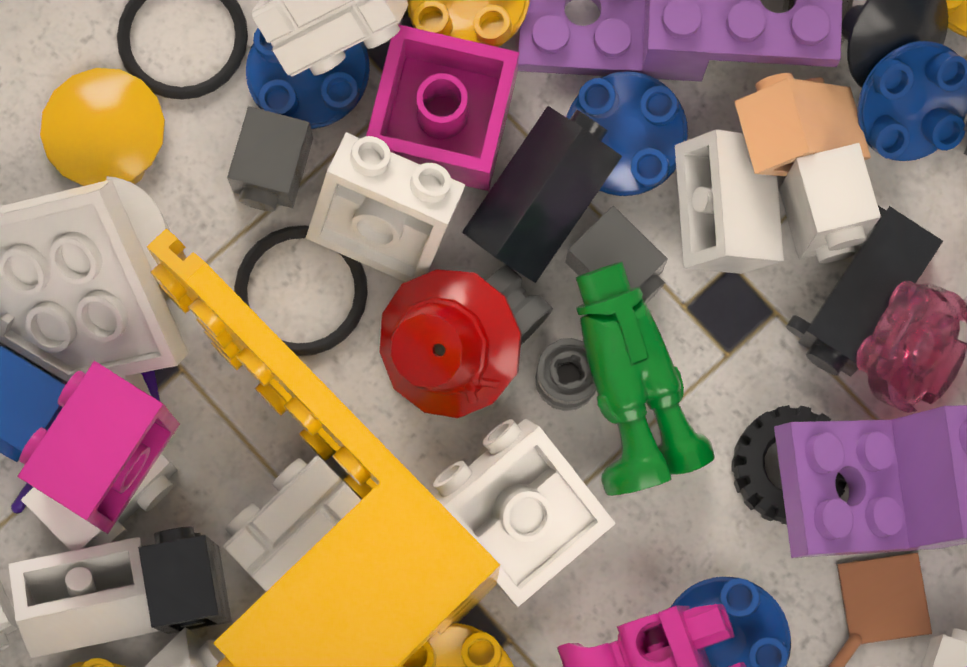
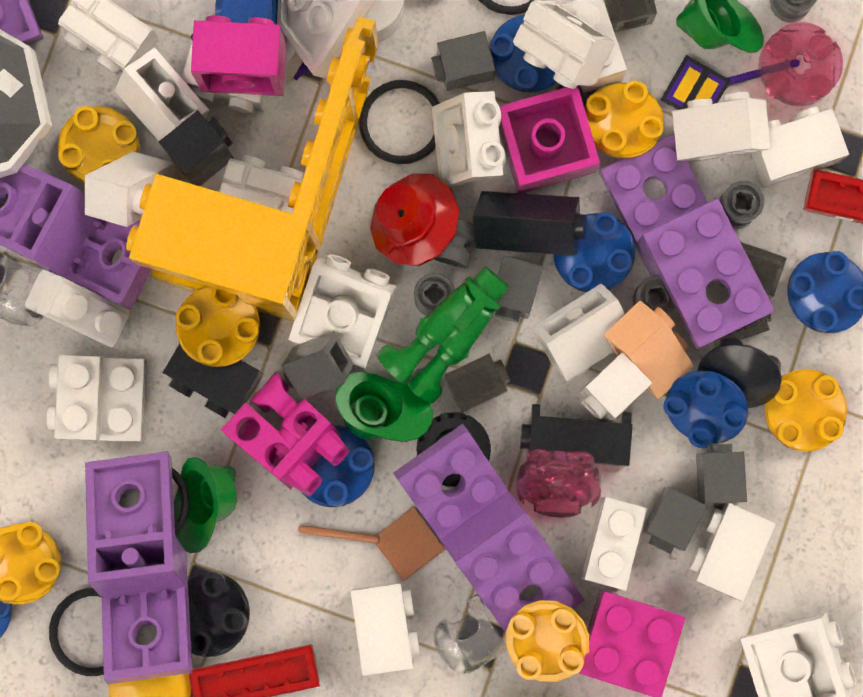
camera: 65 degrees right, 5 degrees up
(579, 585) = (317, 365): none -> dark grey brick
(687, 528) = (382, 408): none -> green piece
(719, 382) = (477, 383): none -> clear smoke brick
(720, 91) = (654, 298): none -> dark grey wheel

